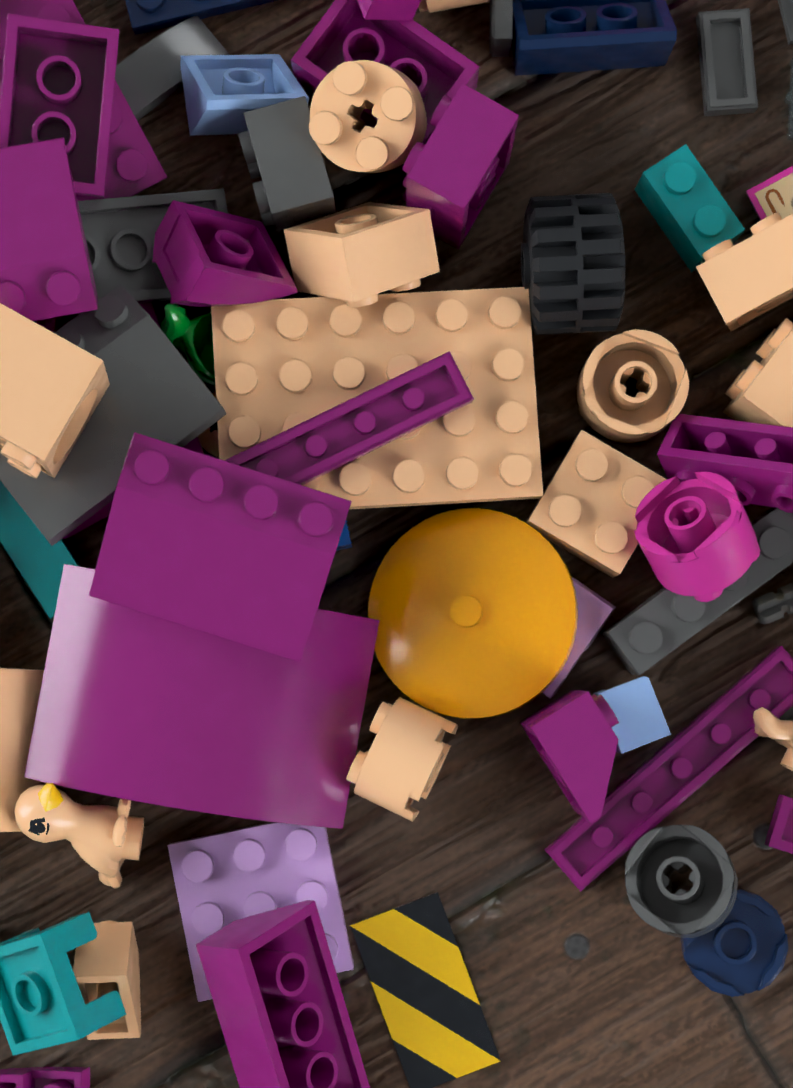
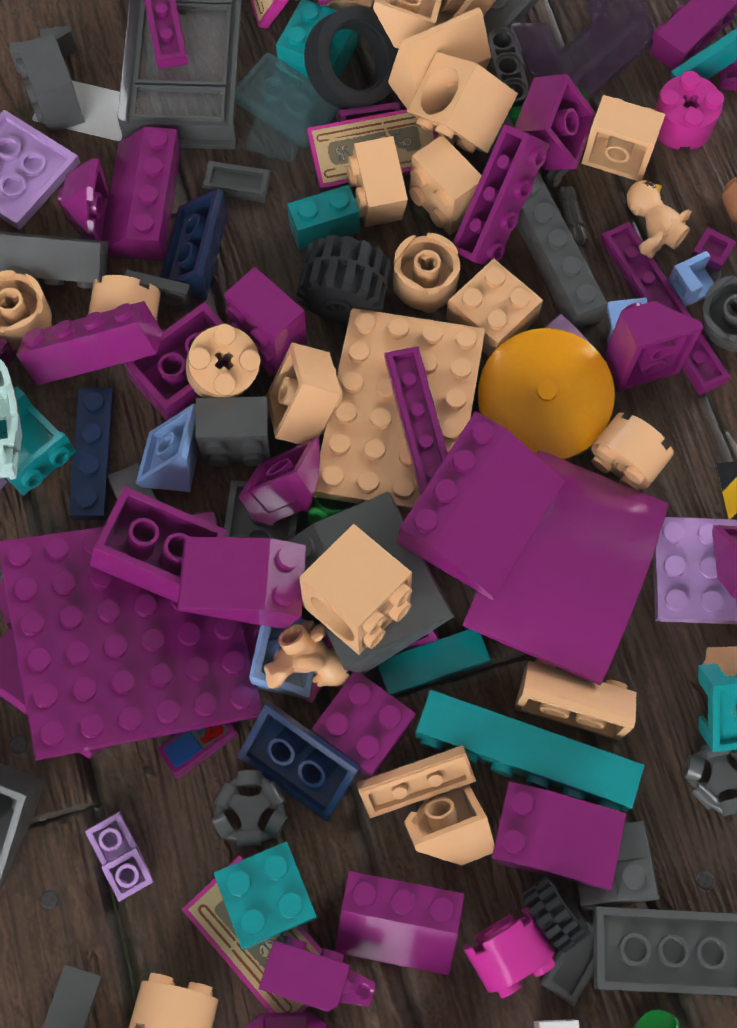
camera: 80 degrees left, 15 degrees down
(97, 832) = (644, 649): light nougat animal -> none
(696, 535) = (531, 246): dark pink brick -> none
(734, 805) = (691, 279): none -> light blue panel

